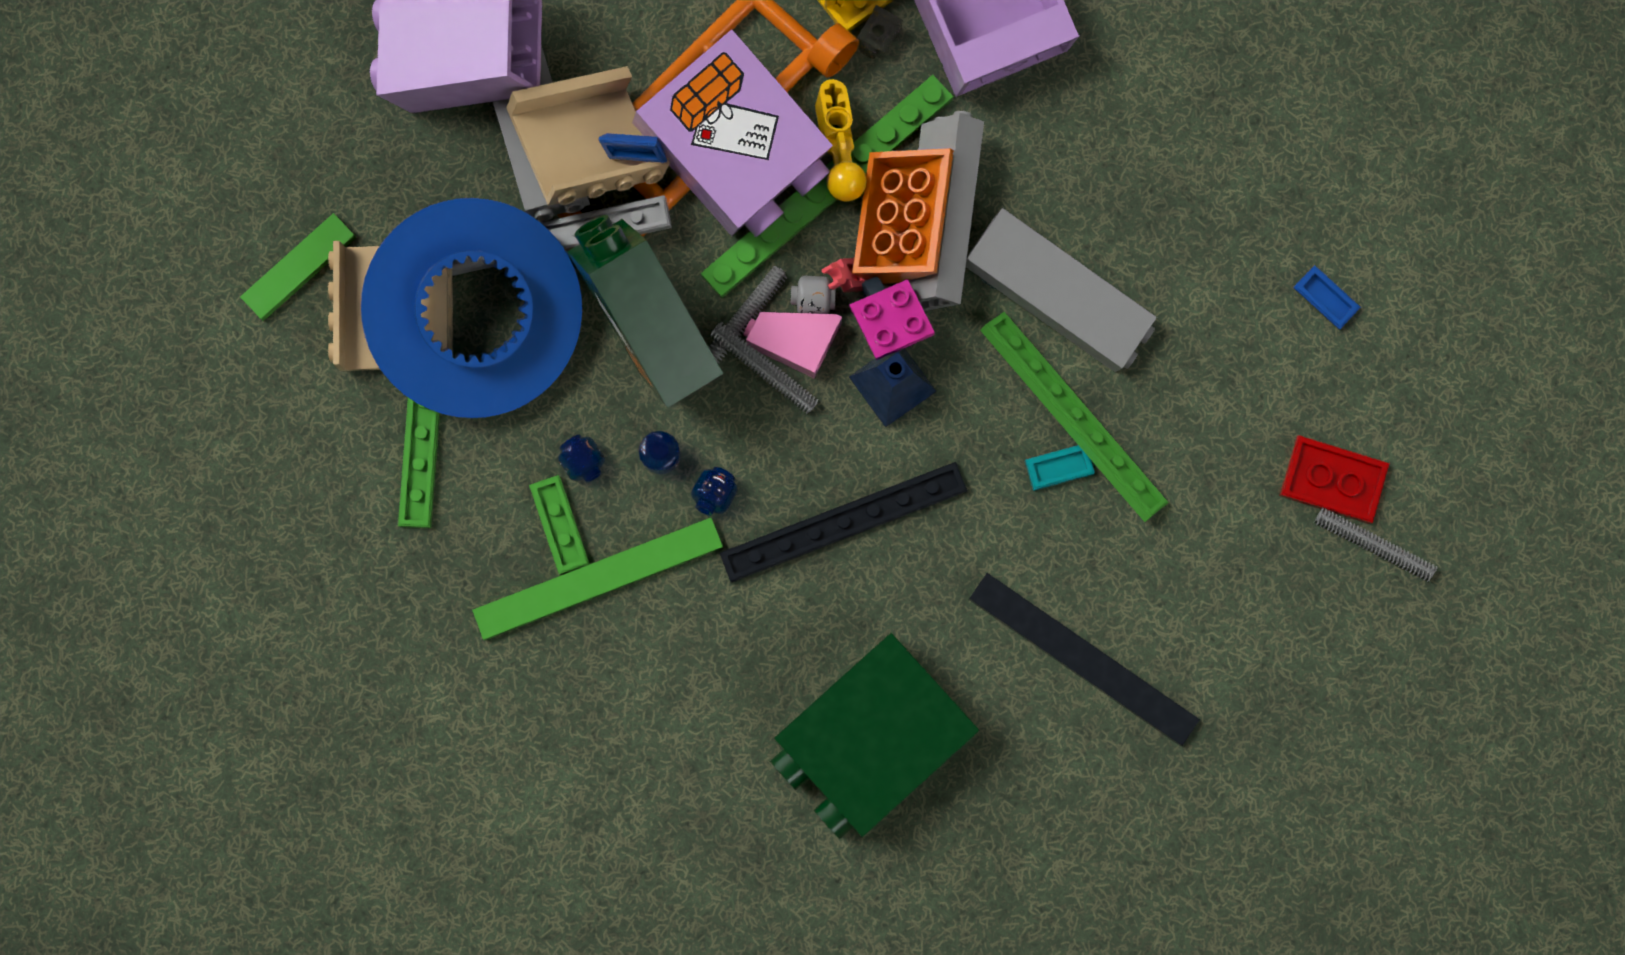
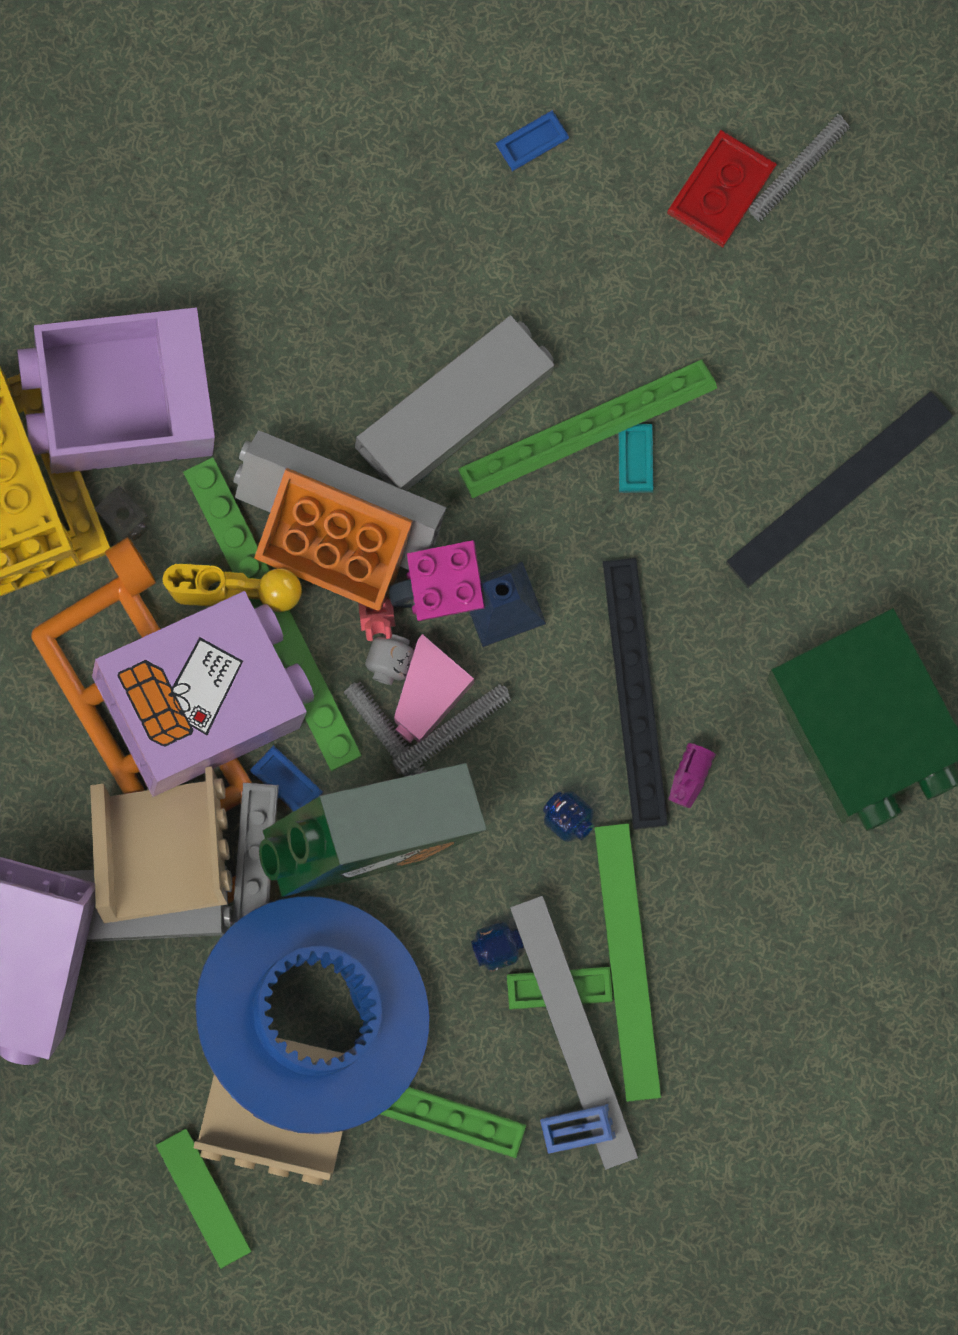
camera: 70 degrees left, 0 degrees up
(445, 592) = (604, 1122): none -> tile
(521, 546) = (572, 1026): none -> light grey tile
(633, 147) = (188, 799): blue tile -> none
(659, 452) = (513, 861): clear blue head -> none
(682, 238) = (294, 787): none -> blue tile
(781, 591) = (691, 775): none -> magenta hinge

